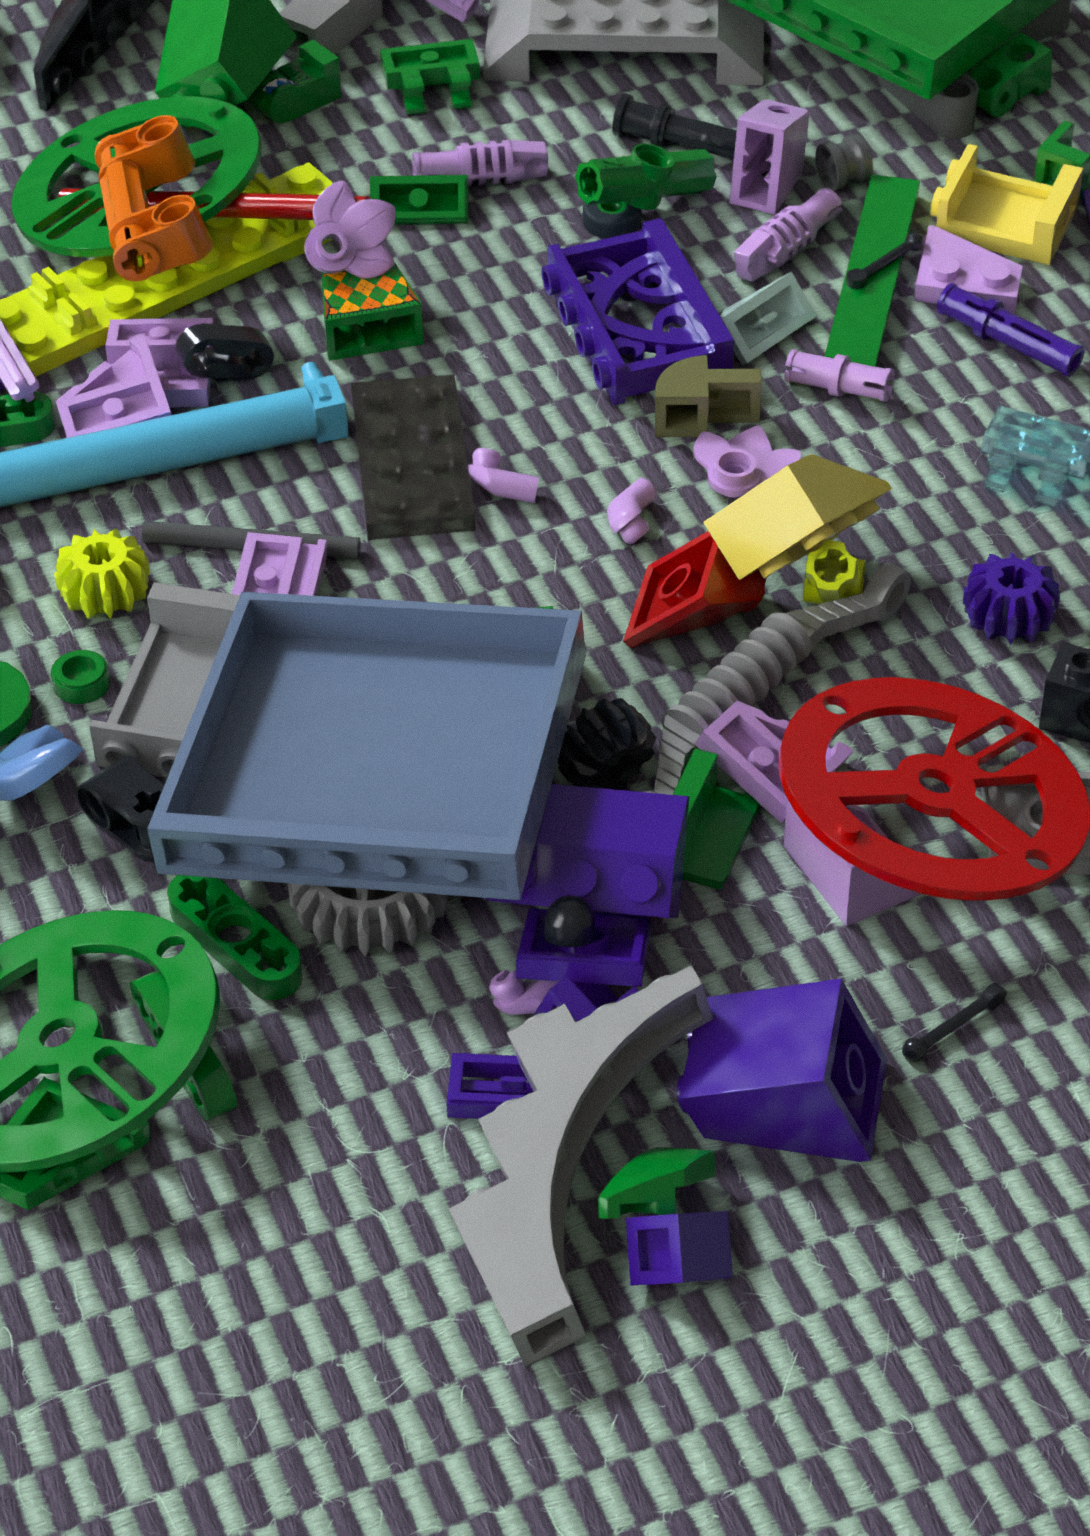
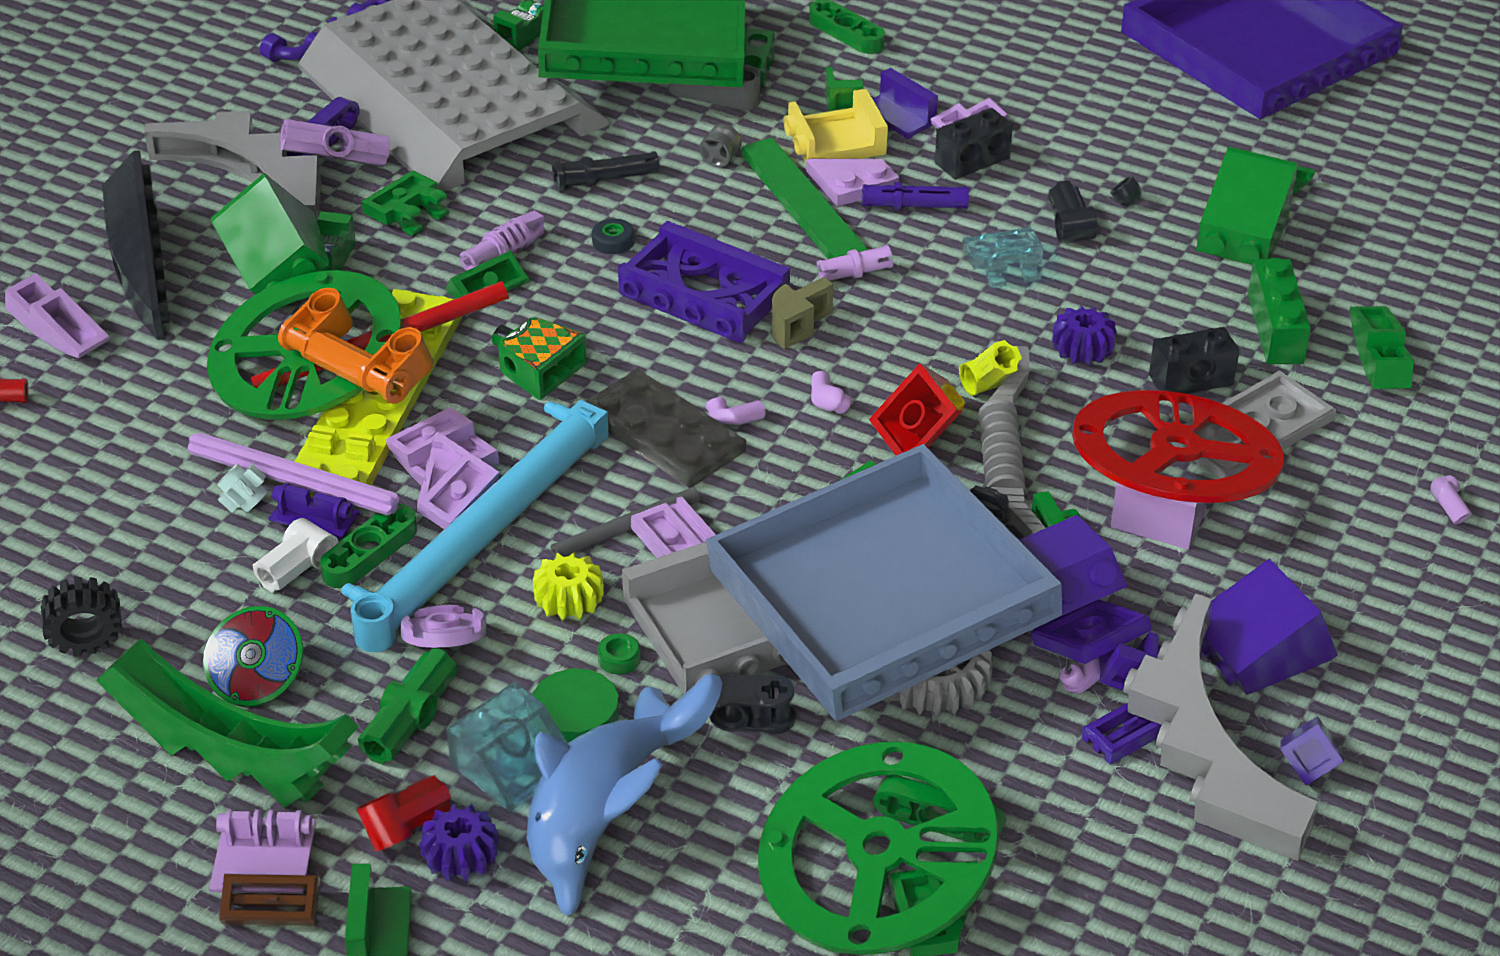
camera: 40 degrees left, 5 degrees down
(223, 357) = (488, 421): black beam -> none
(239, 957) = (876, 725): green beam -> none
(356, 228) = (508, 306): lavender plate -> none
(569, 922) = (1083, 617): black hinge -> none
(645, 176) = (626, 202): green piece -> none
(650, 1181) = (1269, 721): green slope -> none
(741, 461) = (855, 339): lavender plate -> none
(749, 750) = (1067, 481): lavender wing -> none
(767, 317) = (775, 244): light aqua slope -> none
(771, 140) = (680, 149): lavender torso -> none
(785, 235) = (733, 200): lavender hinge -> none
(793, 514) = (960, 343): light yellow slope -> none
(857, 278) = (805, 205): black hinge -> none
(916, 1049) = (1301, 545): black hinge -> none

